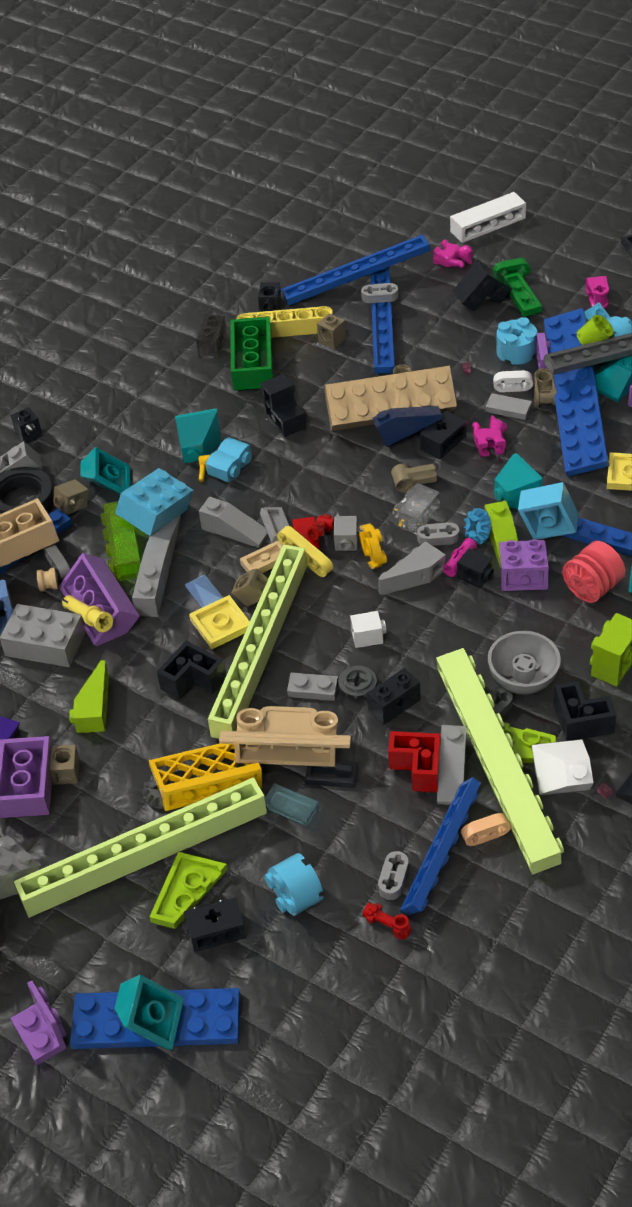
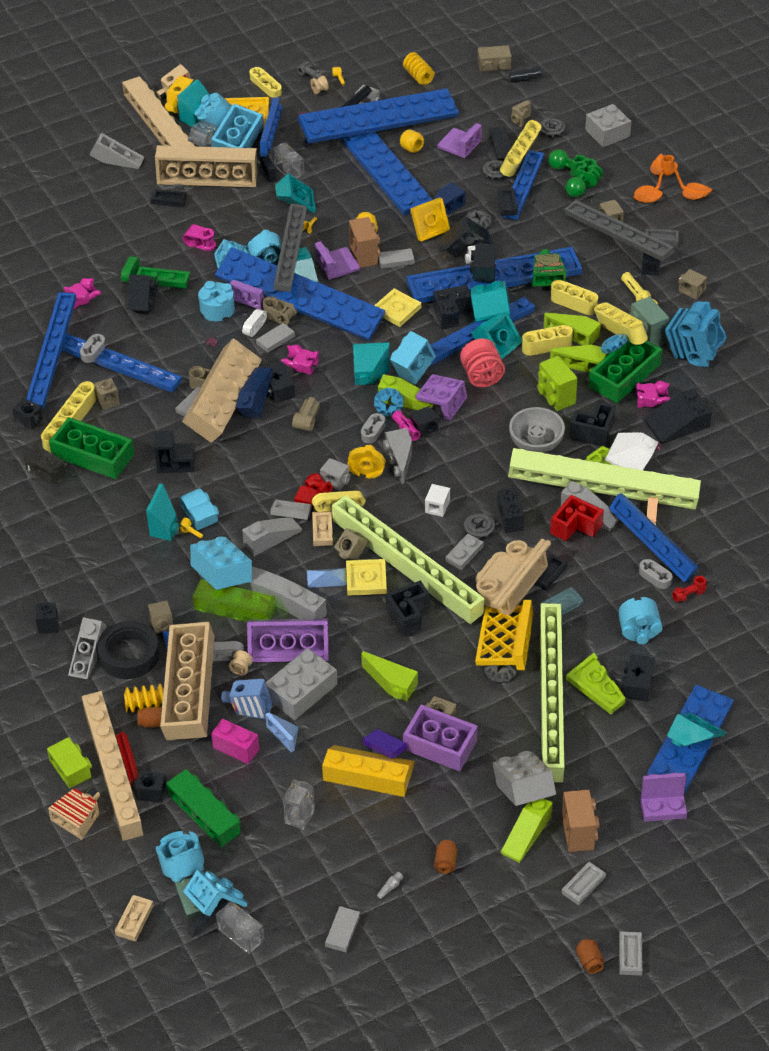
camera: 65 degrees left, 0 degrees up
(91, 614) = (313, 641): light yellow pin -> none
(105, 471) = (148, 587): teal slope -> none
(416, 508) = (341, 427): clear brick -> none
(487, 217) = (55, 255): white brick -> none
(595, 330) = (268, 251): lime piece -> none

